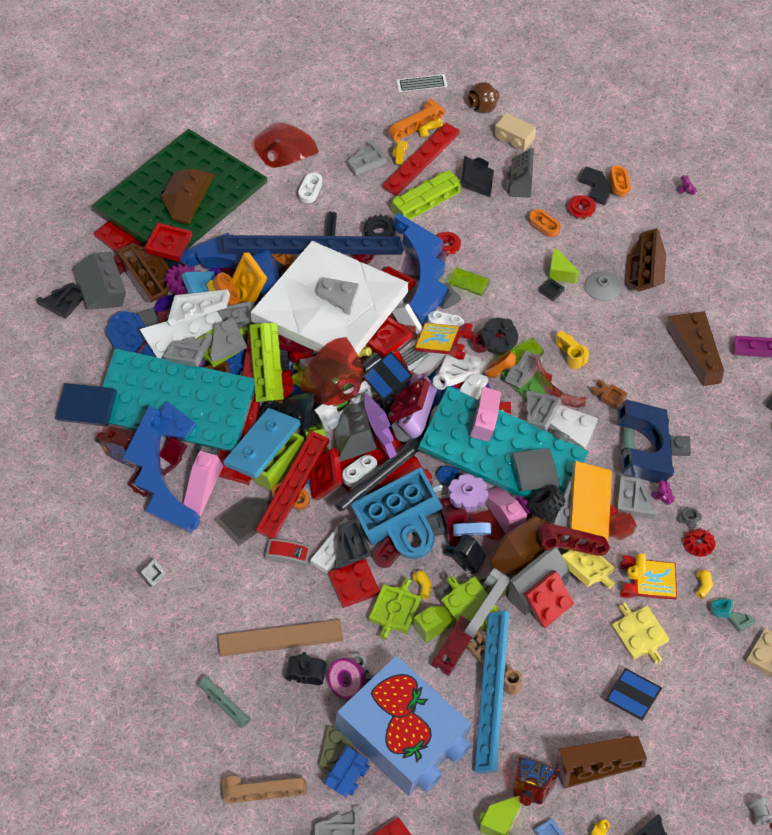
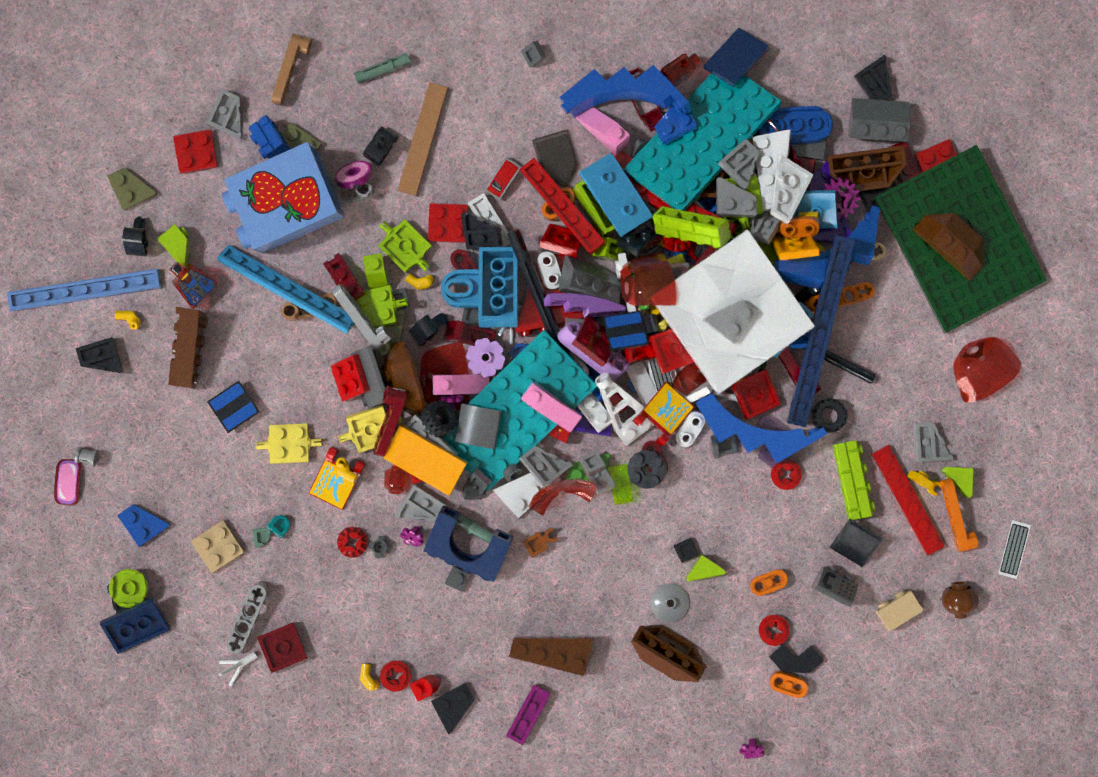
camera: 115 degrees right, 30 degrees up
(168, 242) = (891, 198): red plate -> none
(309, 191) = (915, 371): white plate -> none
(381, 127) = (961, 478): none -> lime slope
(423, 130) = (946, 526): yellow arm -> none
(469, 281) = (728, 474): clear neon green plate -> none
(472, 529) = (437, 337): light blue beam -> none
(496, 367) = (613, 453): orange plate -> none
(576, 354) = (614, 531): yellow plate -> none
(586, 455) = (476, 485): none -> dark grey tile
(706, 581) = (310, 526): yellow arm -> none

